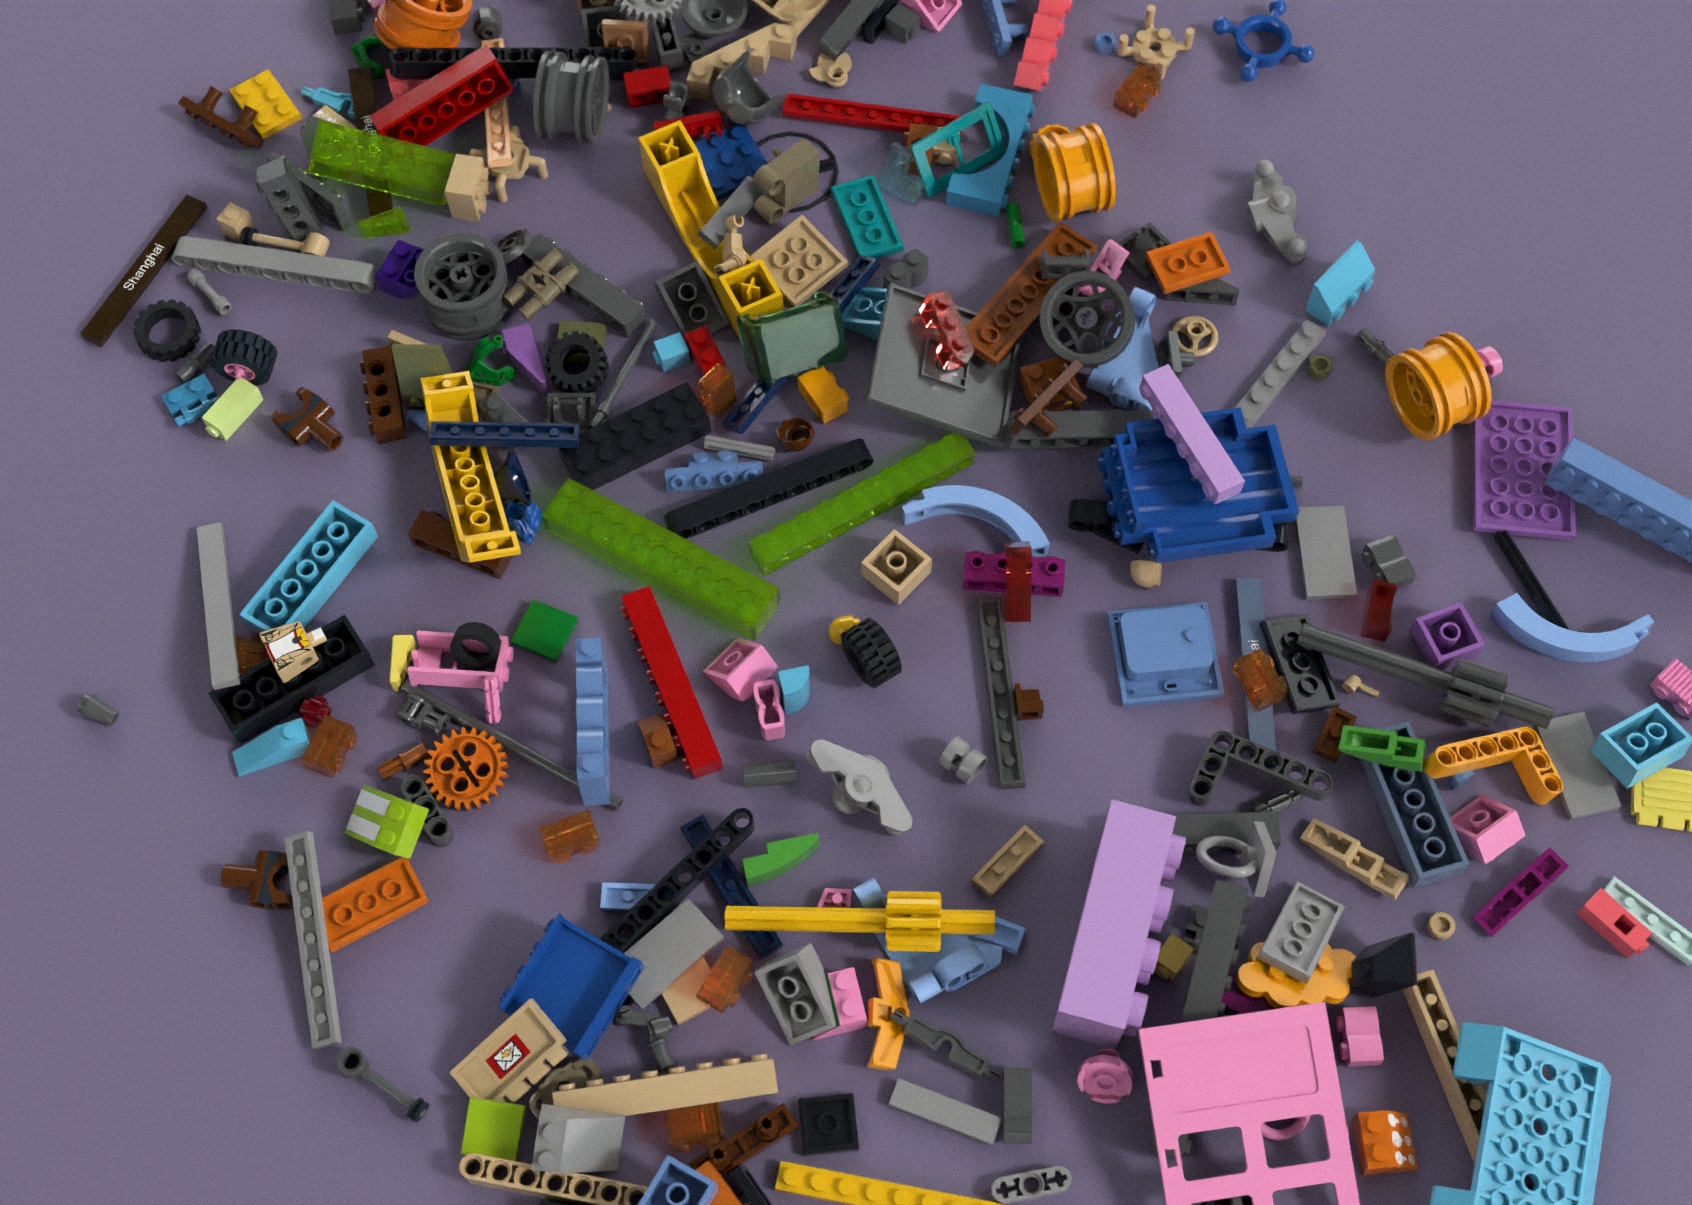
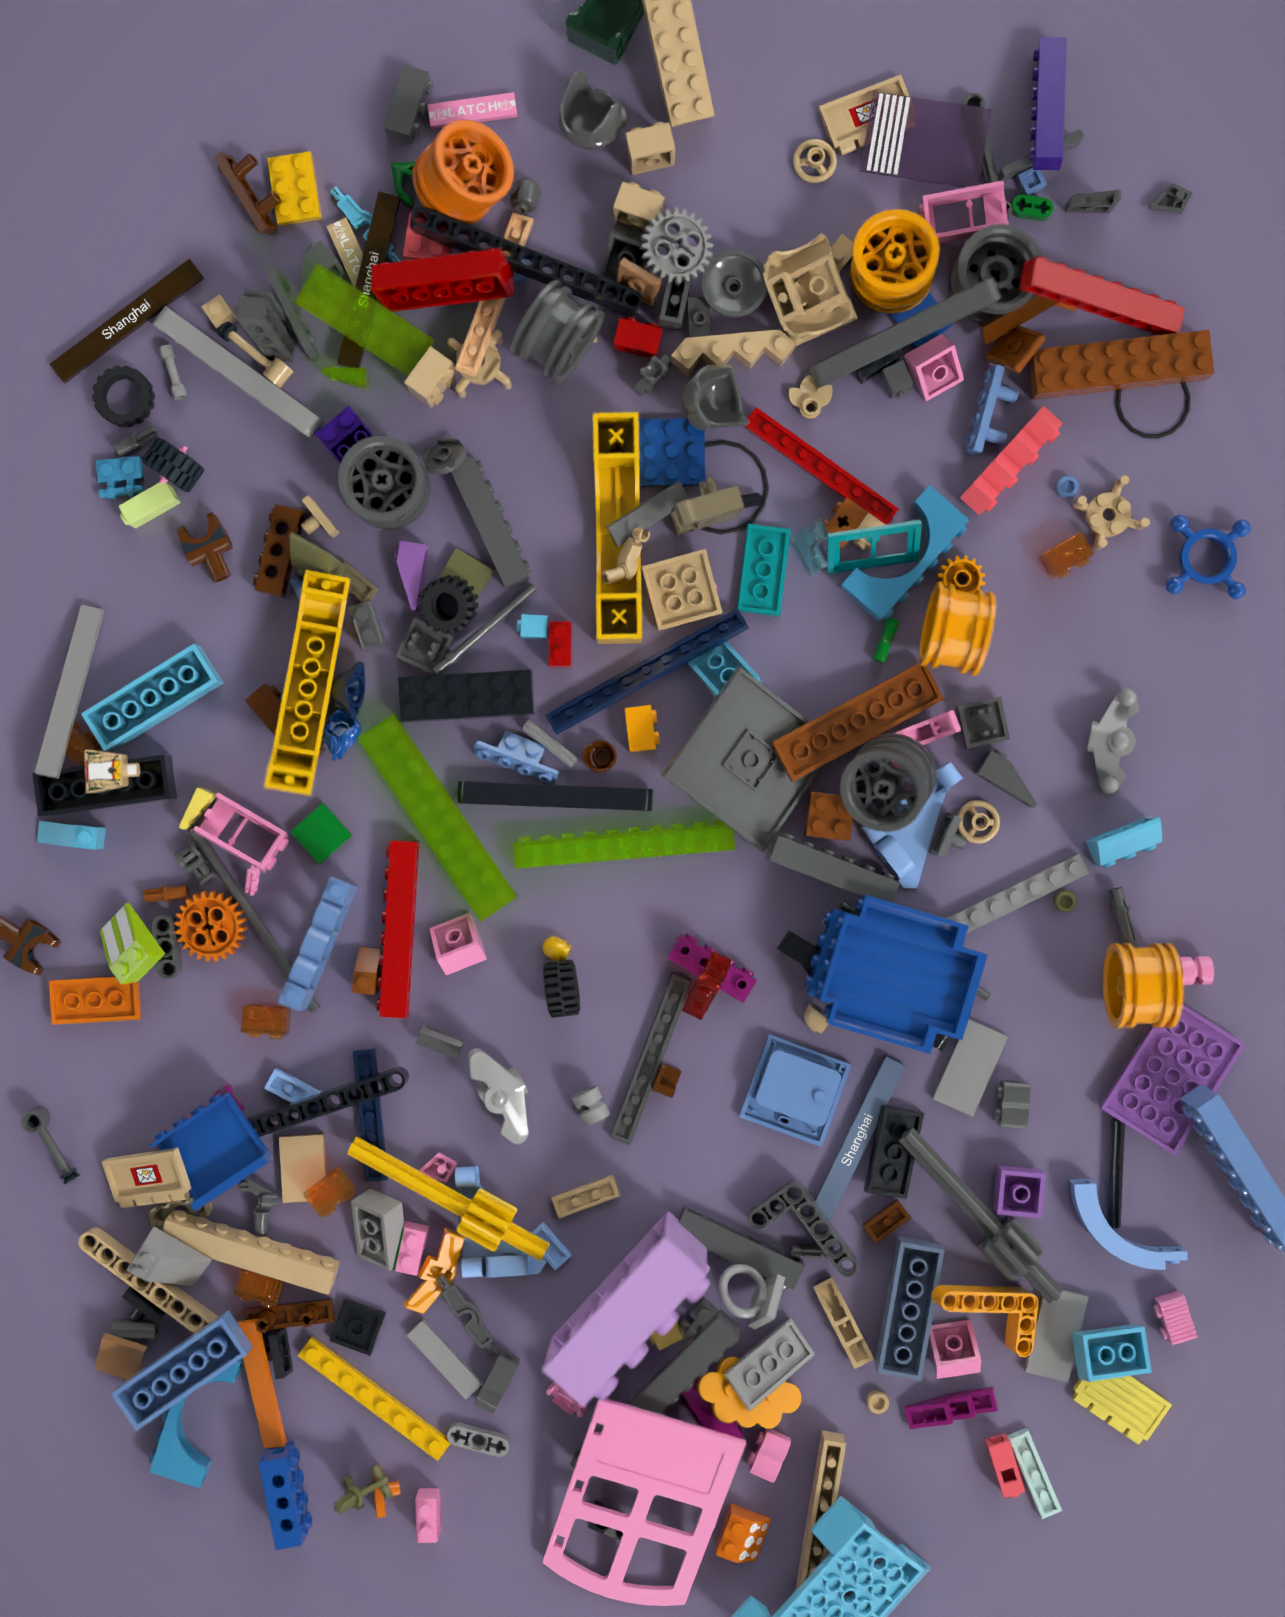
camera: 25 degrees right, 25 degrees up
(312, 940) = (40, 1012): light grey plate -> none
(314, 710) = (113, 821): dark red gear -> none
(329, 746) = (113, 856): clear orange brick -> none
(472, 660) = (256, 830): black tyre -> none
(492, 376) = (363, 565): green helmet -> none
(493, 1129) = (116, 1218): lime tile -> none
(504, 434) = (356, 653): dark blue tile -> none
(540, 274) = (460, 518): dark tan pin -> none
(671, 950) = (301, 1148): light grey tile -> none
(691, 300) = (572, 585): dark grey slope -> none
(698, 124) = (652, 404): red plate -> none
(717, 390) = (551, 688): clear orange brick -> none
(769, 710) = (461, 999): bright pink brick -> none
(781, 858) = (415, 1114): bright green slope -> none
(794, 339) = (635, 682): clear green windscreen -> none
(794, 688) = (488, 987): medium azure brick -> none
(896, 567) = (620, 919): tan brick -> none
(909, 272) = (772, 646): dark grey brick -> none
(954, 343) = (764, 750): clear red arch -> none
(982, 505) = (733, 914): light blue arch -> none
(1035, 413) = (805, 842): reddish brown plate -> none
(1060, 266) = (902, 710): dark grey hinge -> none
(1188, 262) = (1006, 762): orange plate -> none
(1191, 434) = (910, 936): lavender brick -> none
(1259, 679) = (852, 1155): clear orange brick -> none
(1354, 682) = (924, 1186): tan hand -> none
(1378, 610) = (979, 1139): clear red panel -> none
(1383, 747) = (909, 1265): bright green slope -> none
(1386, 966) = (815, 1419): black slope -> none

